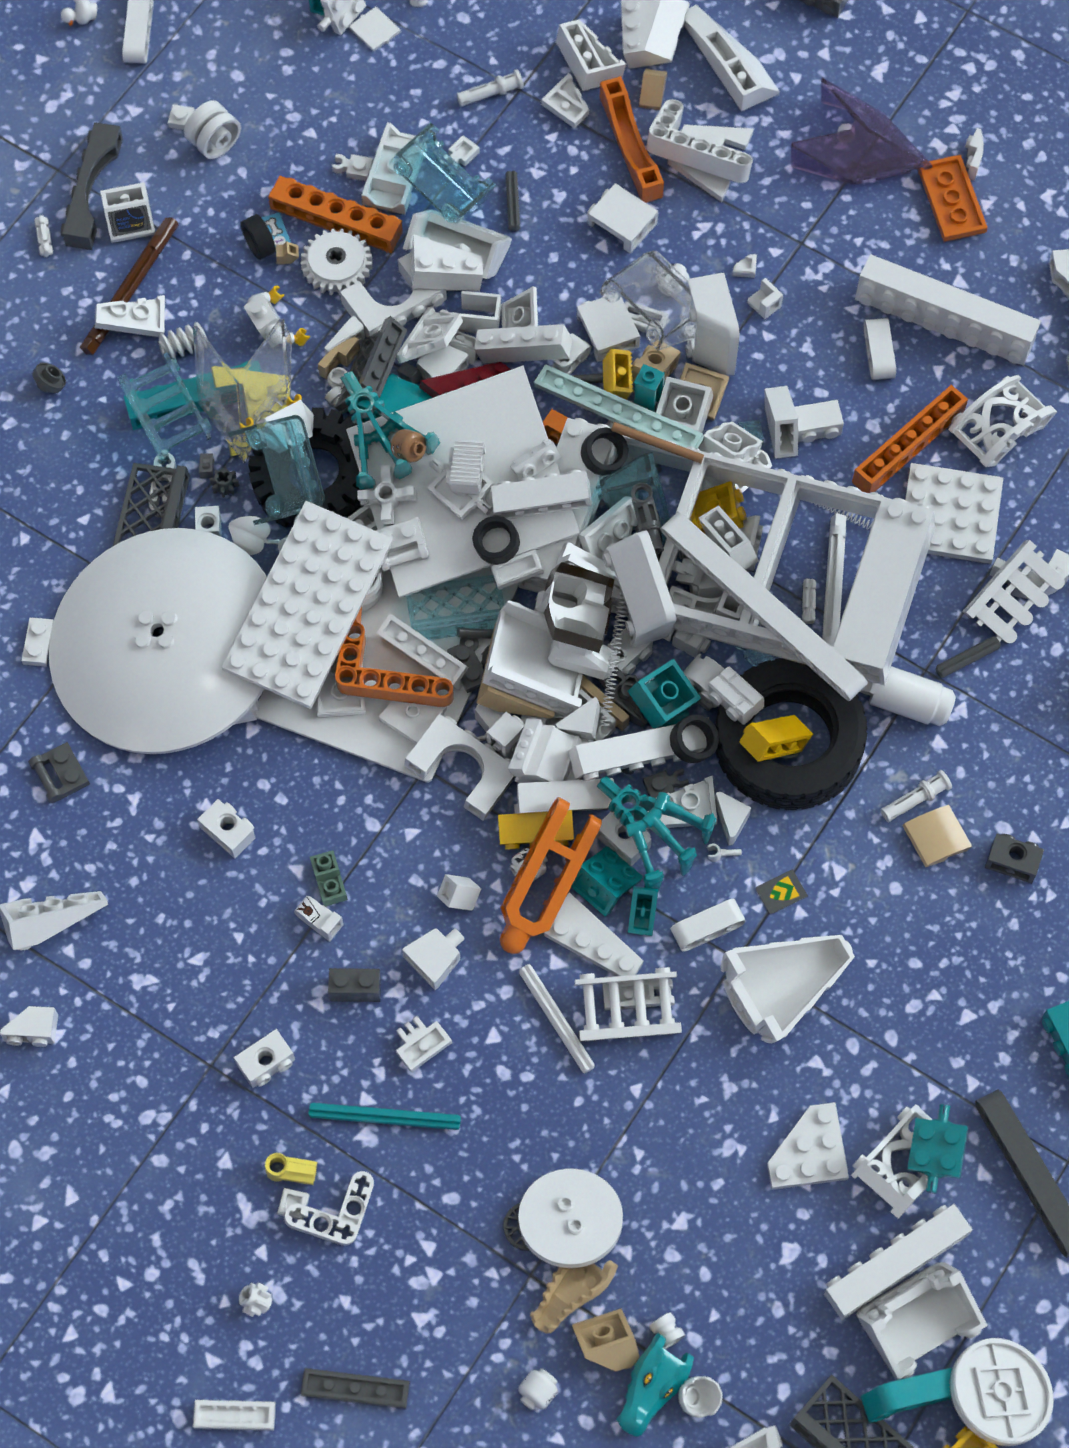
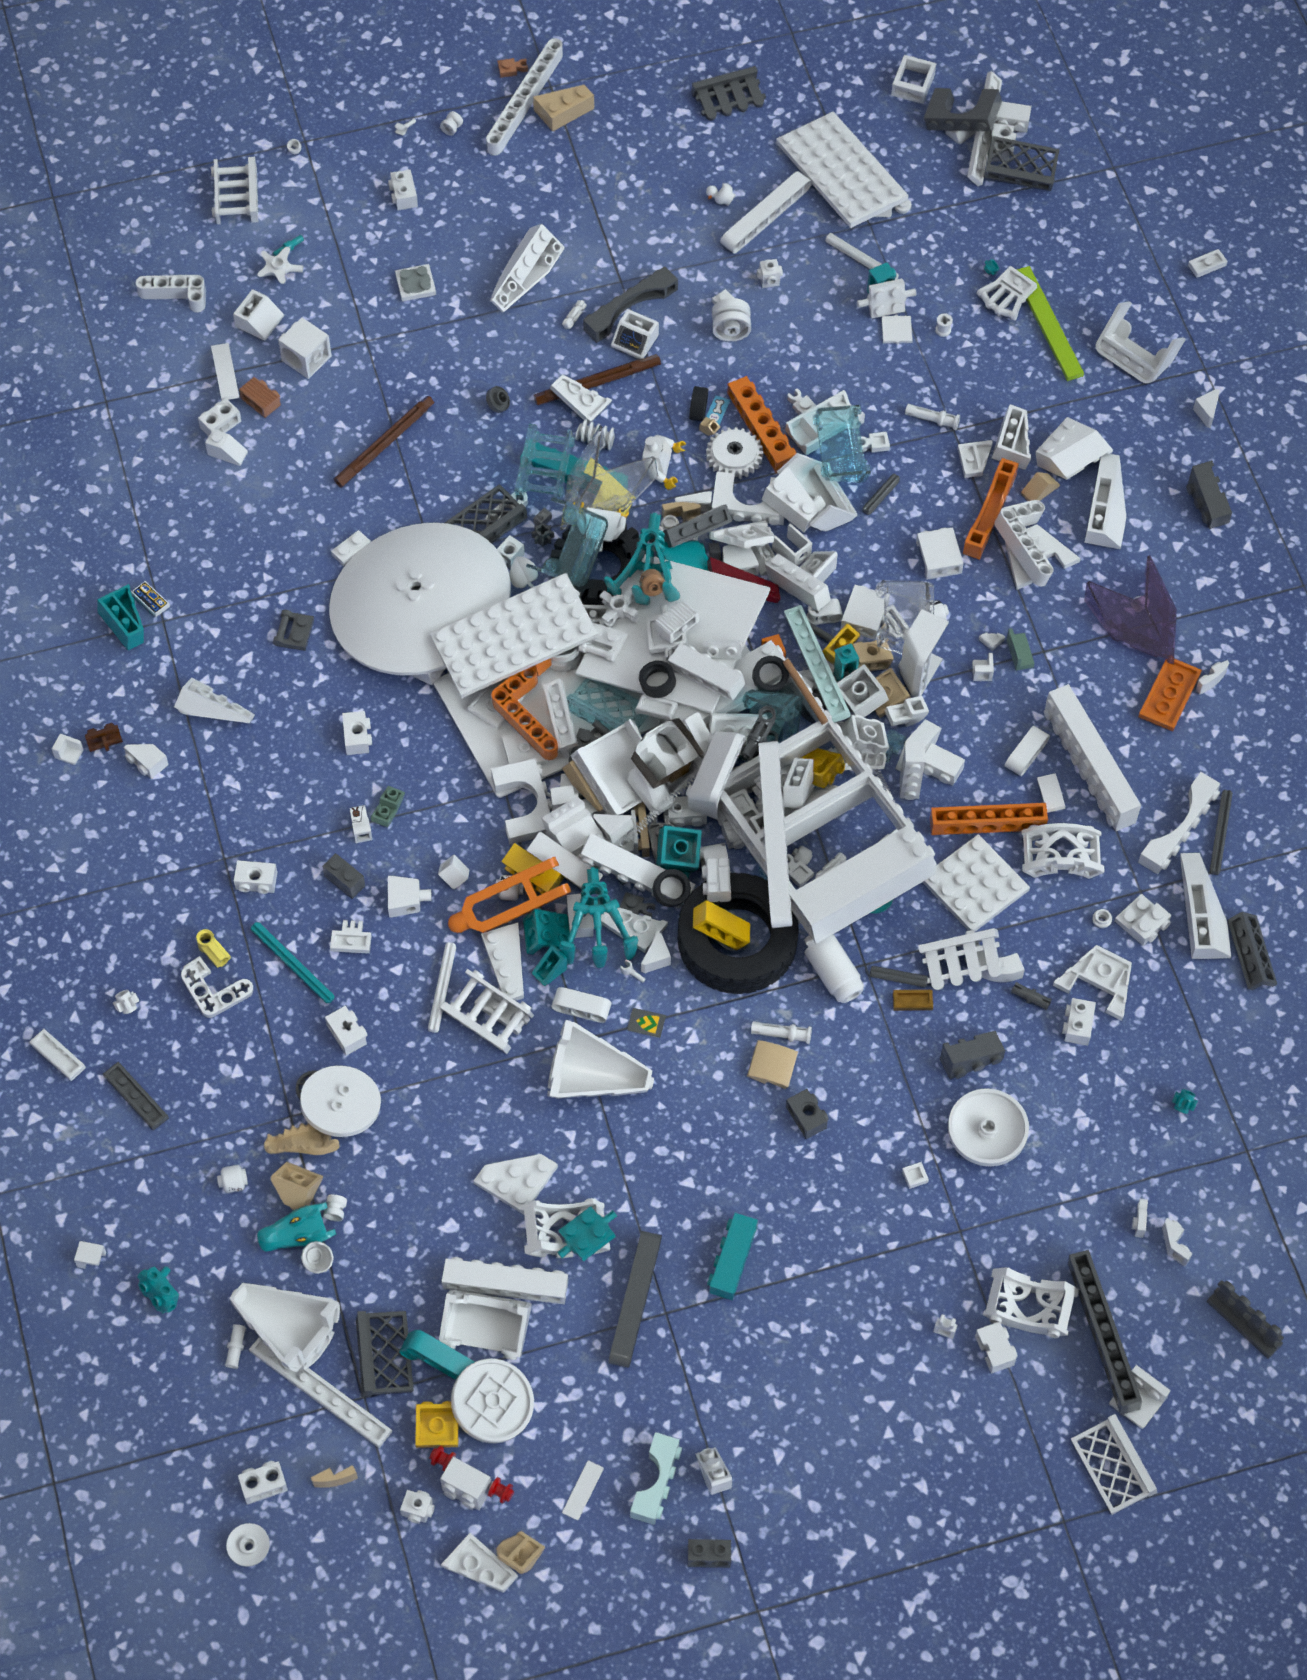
camera: 40 degrees right, 5 degrees down
(203, 57) = (769, 273): none -> white brick
(515, 1150) = (339, 1022): none -> white brick
(740, 393) = (907, 713): none -> white brick
(781, 258) = (1019, 650): none -> sand green panel
(809, 444) = (912, 769): none -> white brick
(937, 371) = (1051, 792): none -> white slope
(1001, 669) = (912, 1000): none -> pearl gold tile

